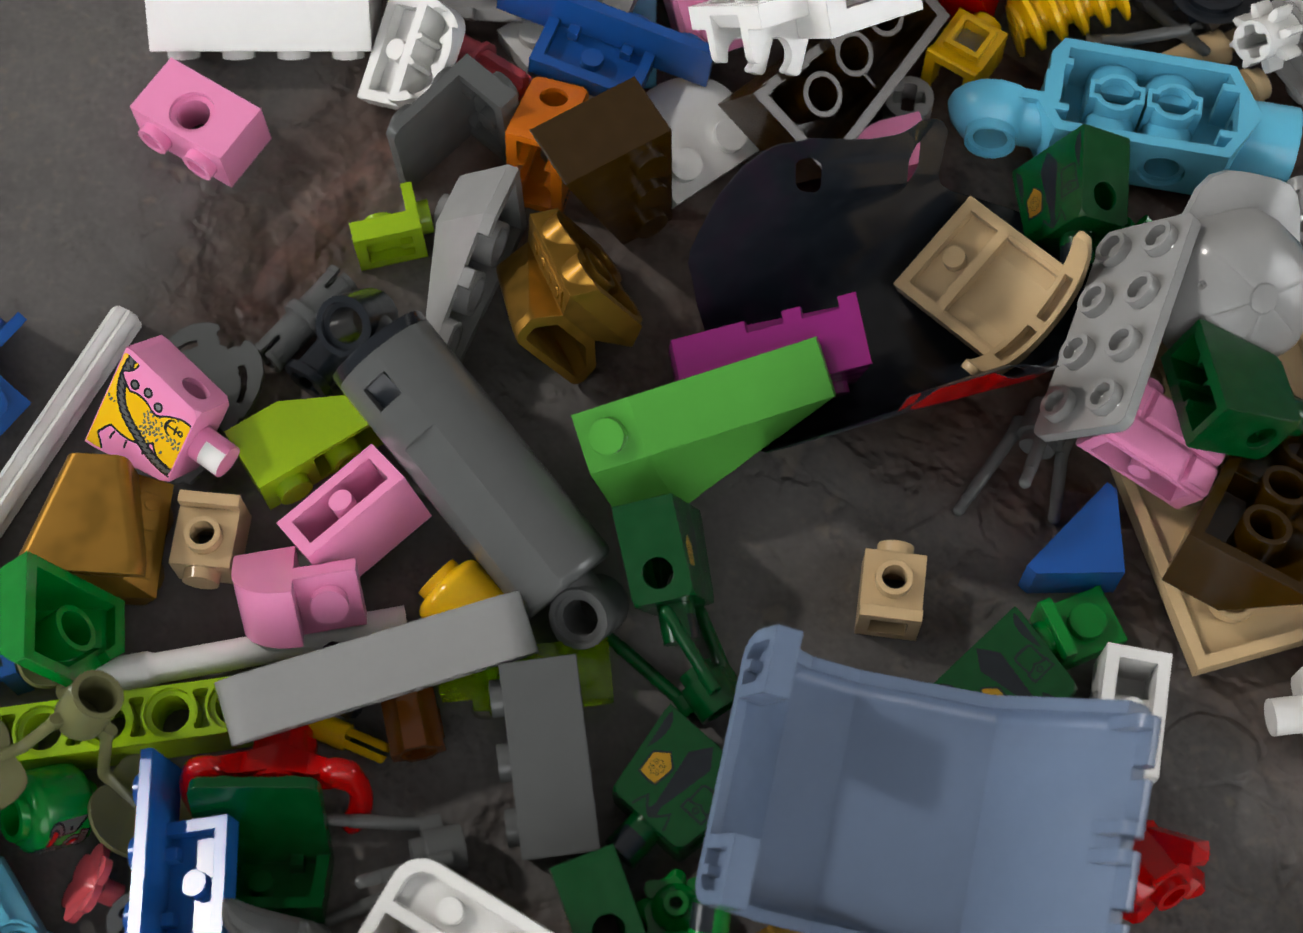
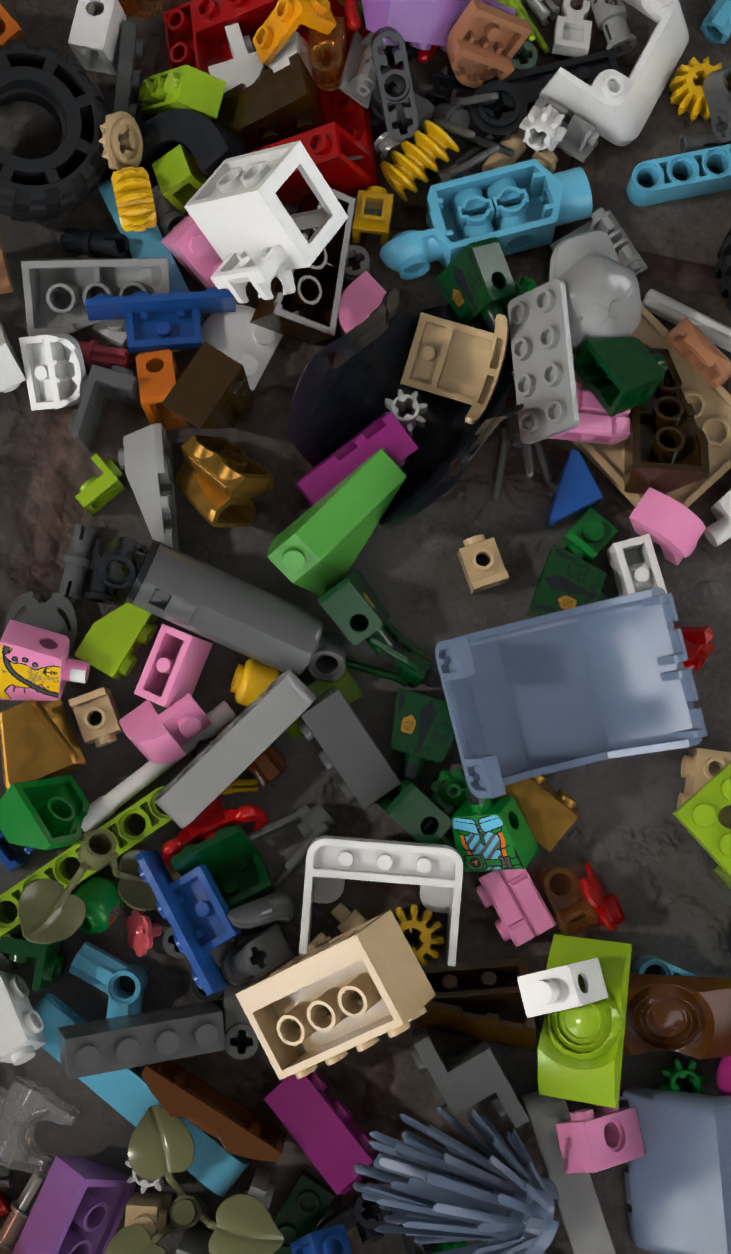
camera: 25 degrees left, 15 degrees up
(885, 311) = (403, 402): none -> white gear
(1210, 659) = (668, 524): none -> bright pink brick

